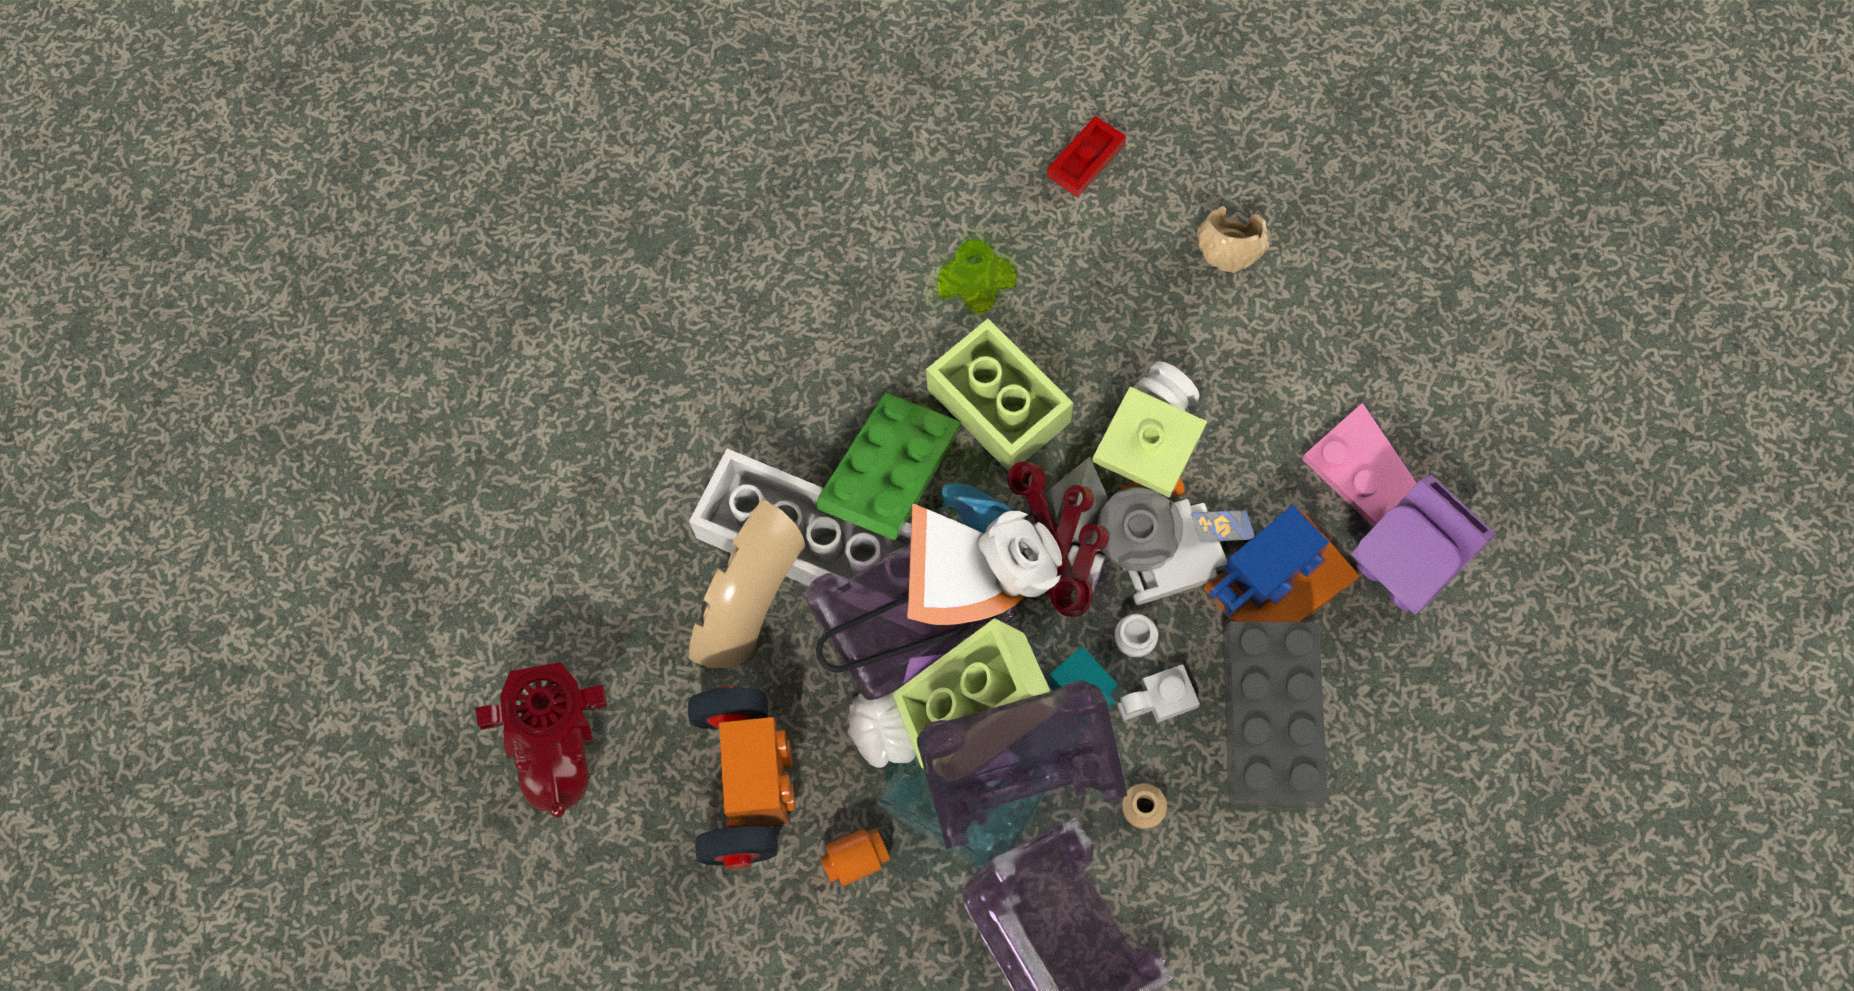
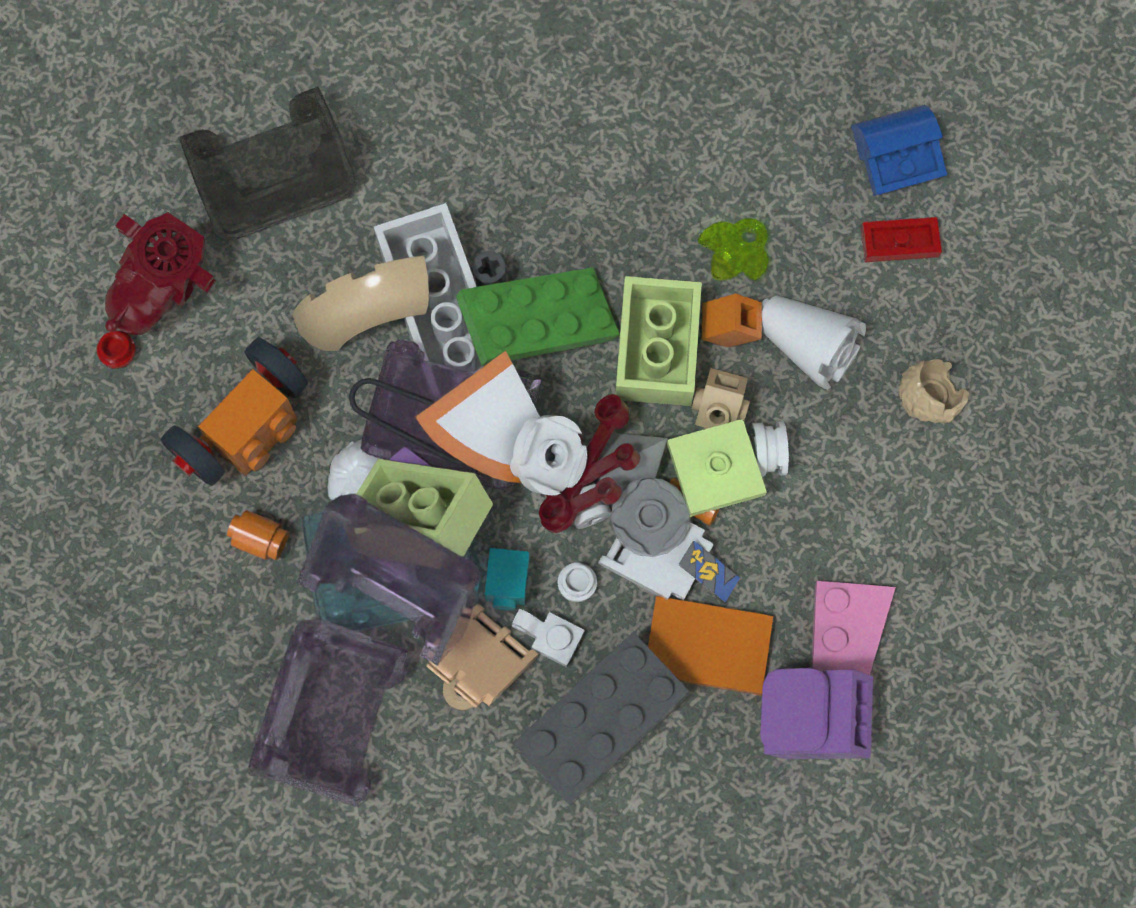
camera: 40 degrees right, 5 degrees up
(552, 562) = (273, 172): none -> clear smoke windscreen
(572, 832) = (116, 349): none -> red plate
(807, 461) = (494, 263): none -> dark grey bush
(972, 504) = (563, 394): dark azure helmet -> none
(1015, 92) = (900, 149): none -> blue brick
(1037, 326) = (731, 320): none -> orange brick
(1094, 392) = (721, 399): none -> tan brick
(1102, 284) = (812, 337): none -> white cone
(1148, 768) = (483, 661): none -> light nougat plate
(1271, 562) = (708, 624): blue brick -> none

